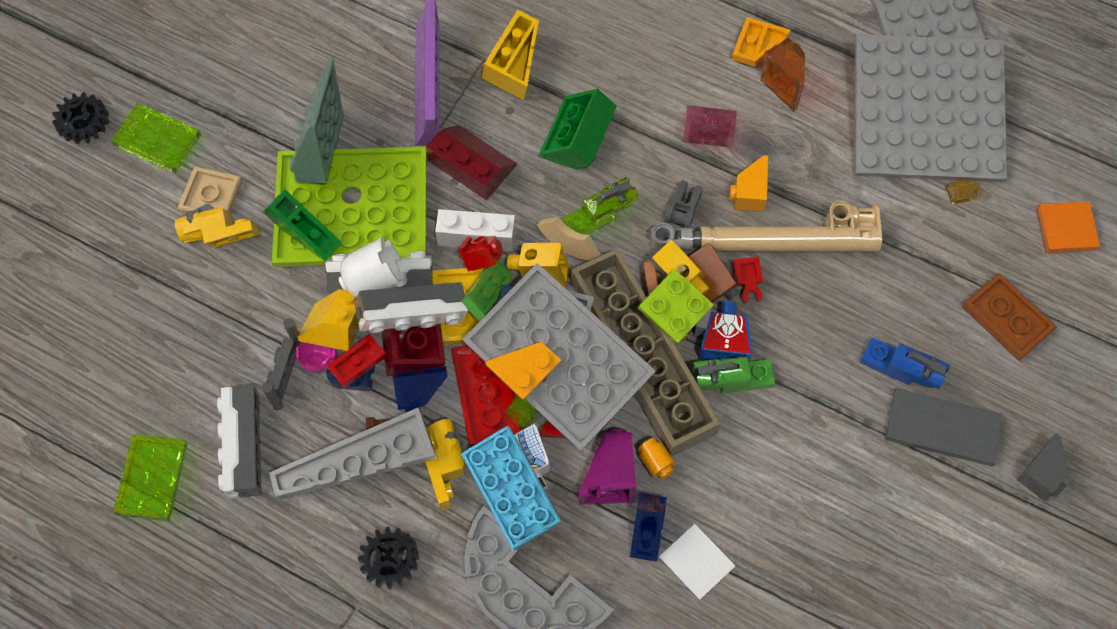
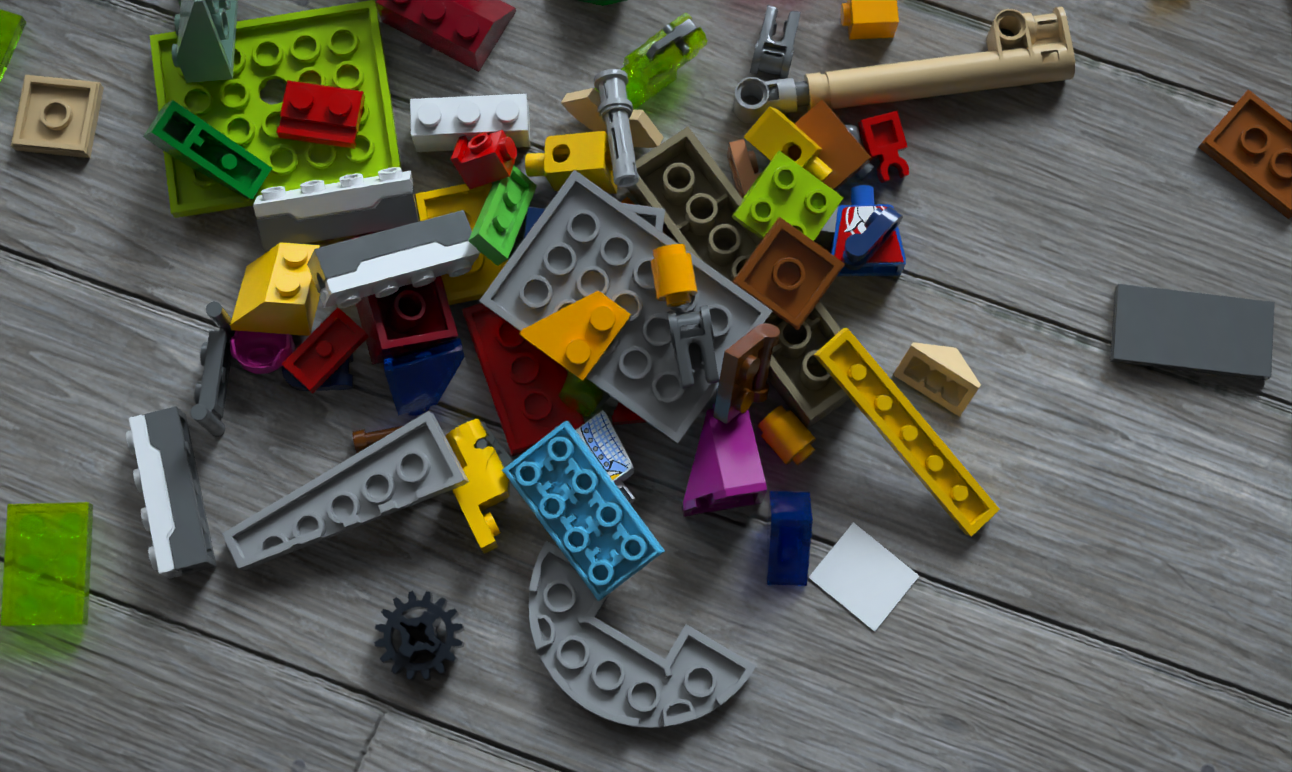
camera: 10 degrees left, 10 degrees up
(214, 227) = (72, 168): yellow plate -> none
(372, 268) = (326, 209): white cylinder -> none
(379, 212) = (321, 114): none -> red plate
(570, 232) = (615, 112): none -> light grey pin
(592, 337) = (673, 275): none -> light orange brick
(604, 378) = (683, 338): none -> dark grey piece
(632, 409) = (745, 372): none -> reddish brown plate
(670, 348) = (788, 273): none -> dark orange tile
(724, 338) = (863, 246): none -> dark blue plate
(733, 374) = (883, 295): bright green plate -> none
(738, 465) = (906, 431): none -> yellow plate
(765, 432) = (939, 374): none -> tan slope
(905, 364) = (1128, 246): blue plate -> none

